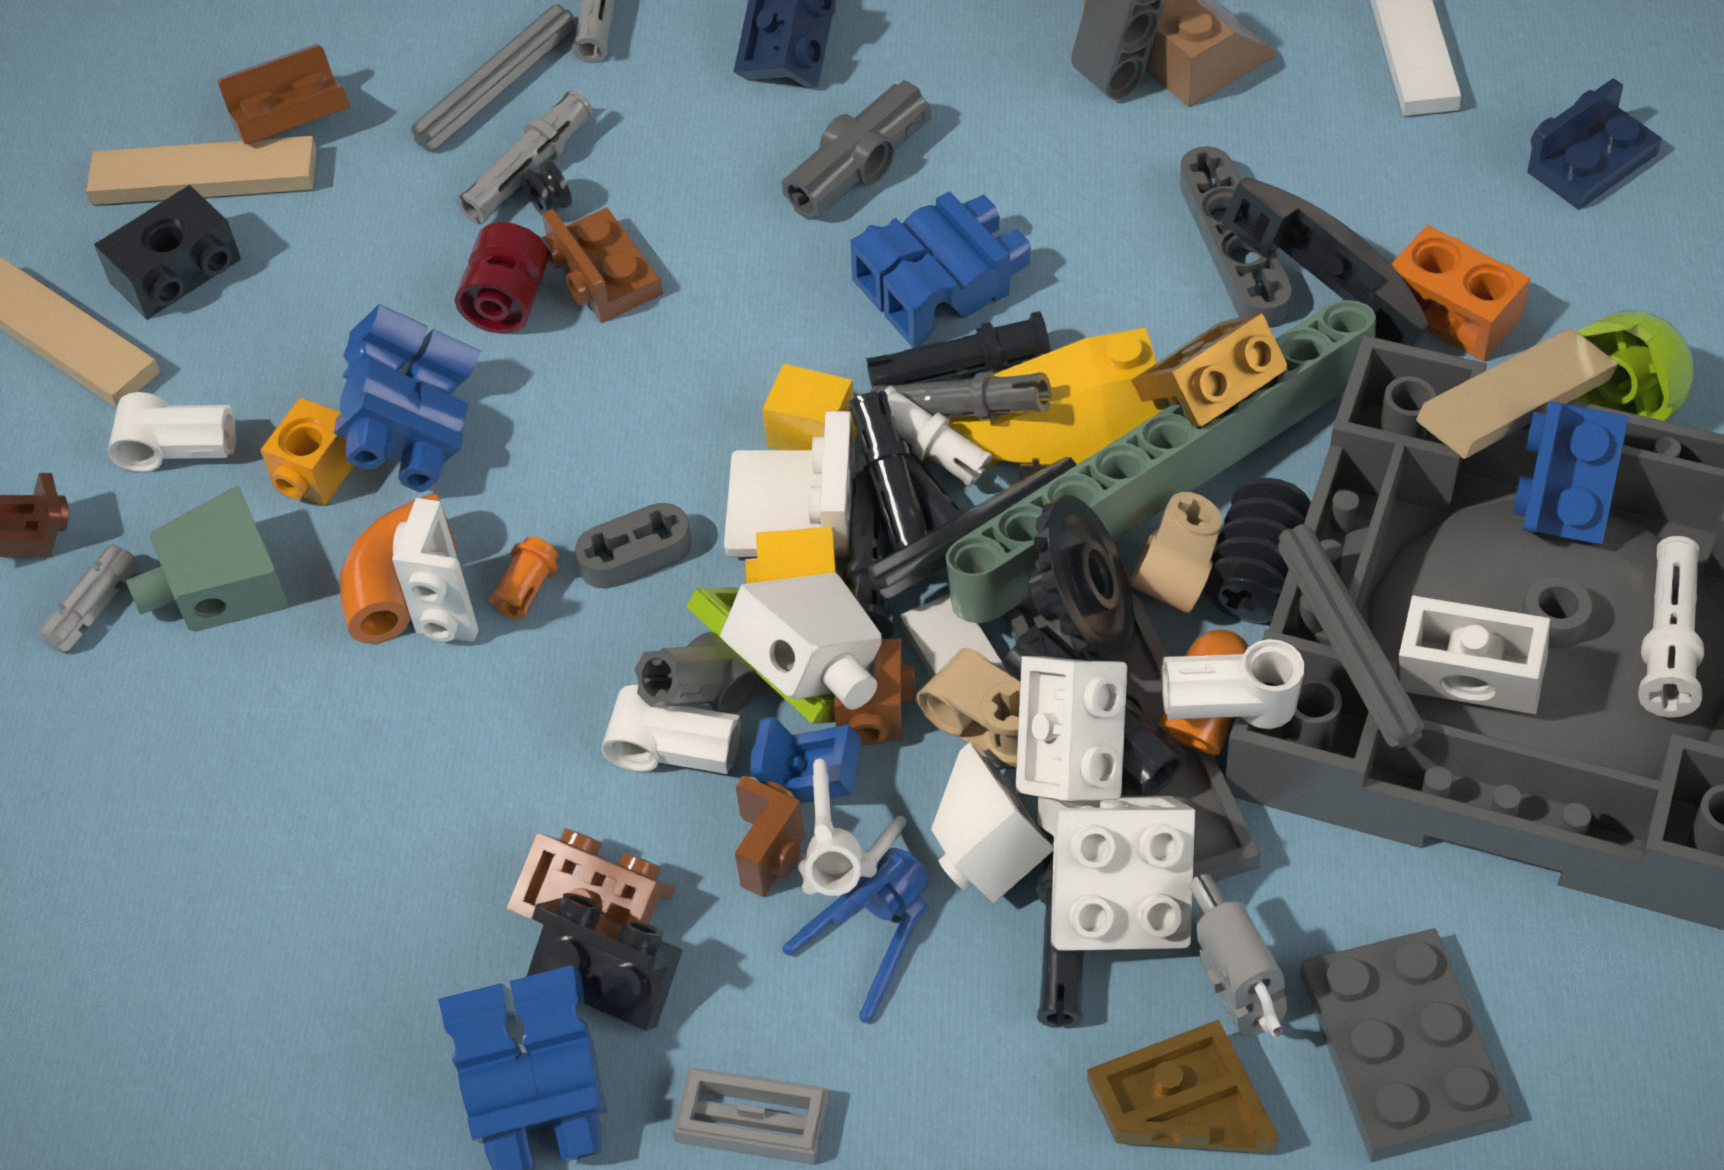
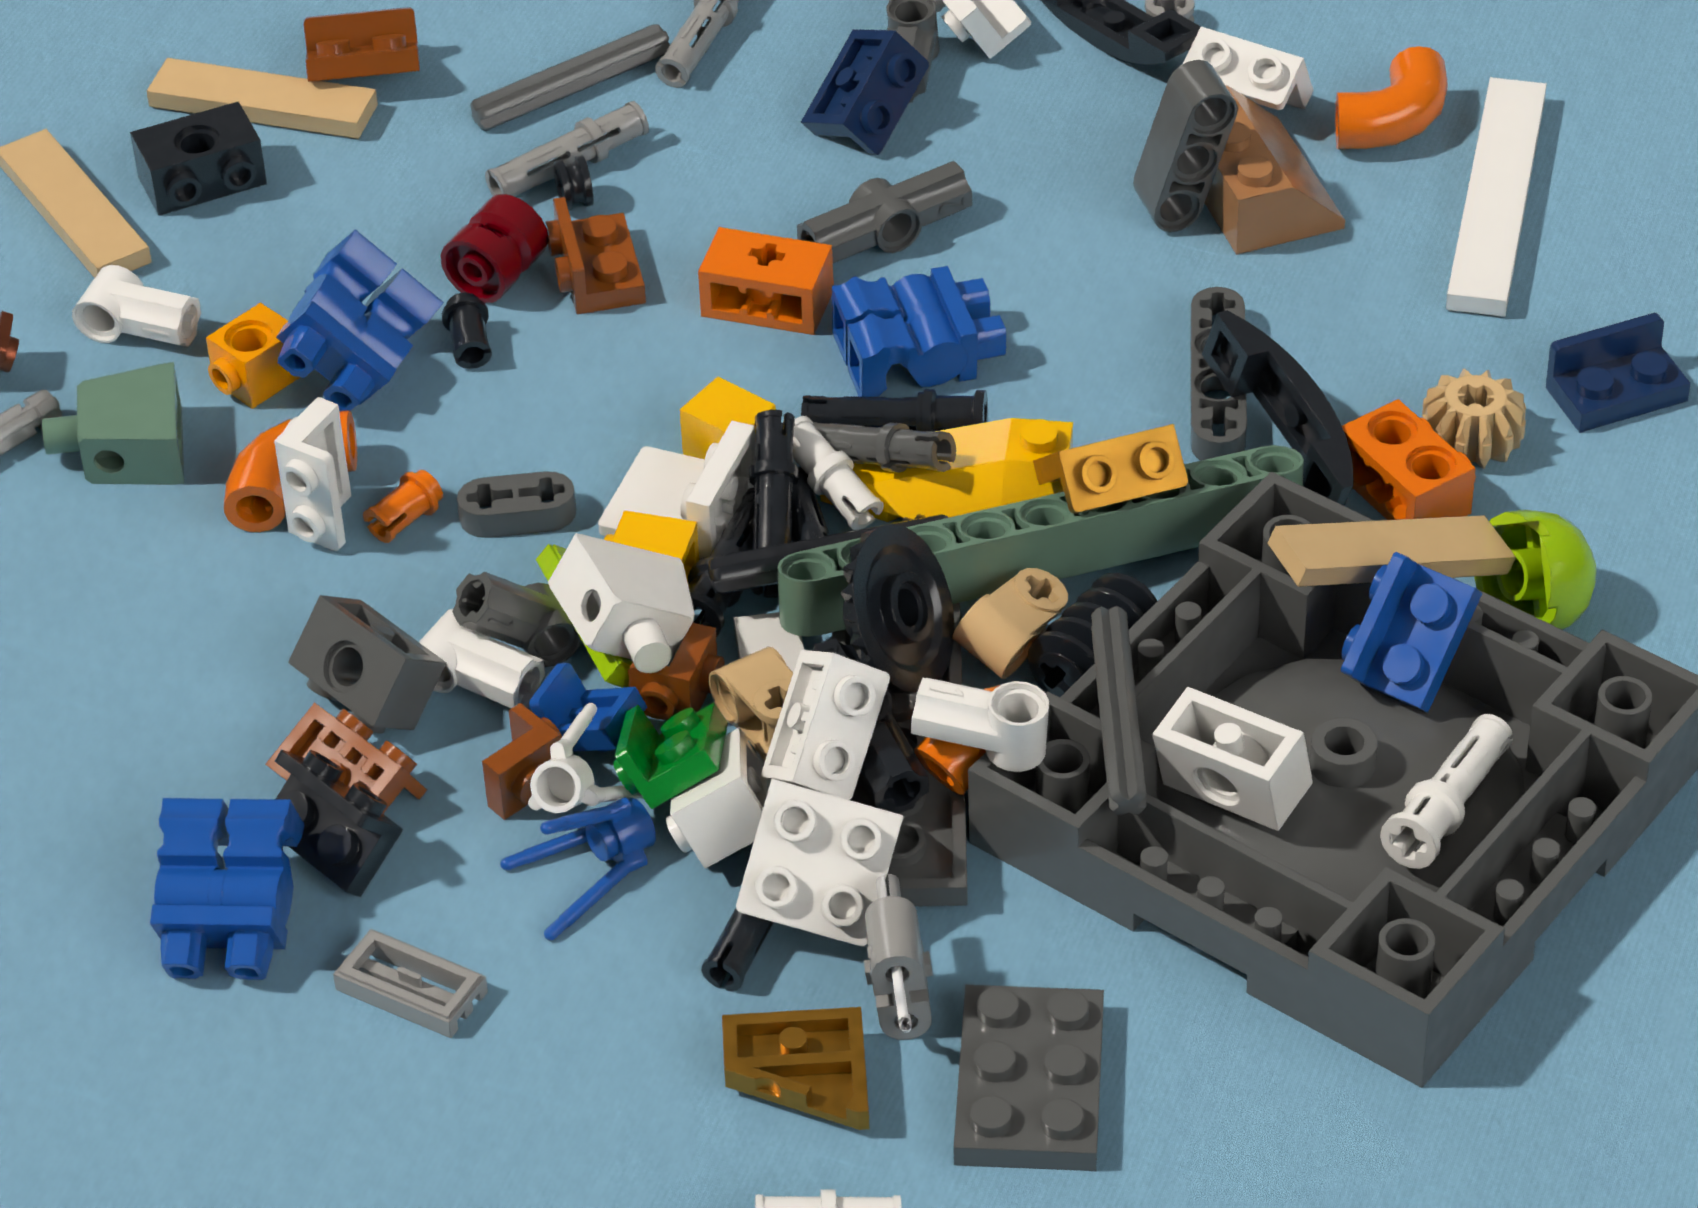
camera: 15 degrees right, 10 degrees down
(503, 360) = (466, 320): none -> black pin
(602, 769) = (366, 664): none -> dark grey brick
(775, 245) = (766, 280): none -> orange brick
(918, 791) = (669, 761): none -> green bracket
(1494, 219) = (1477, 415): none -> tan gear

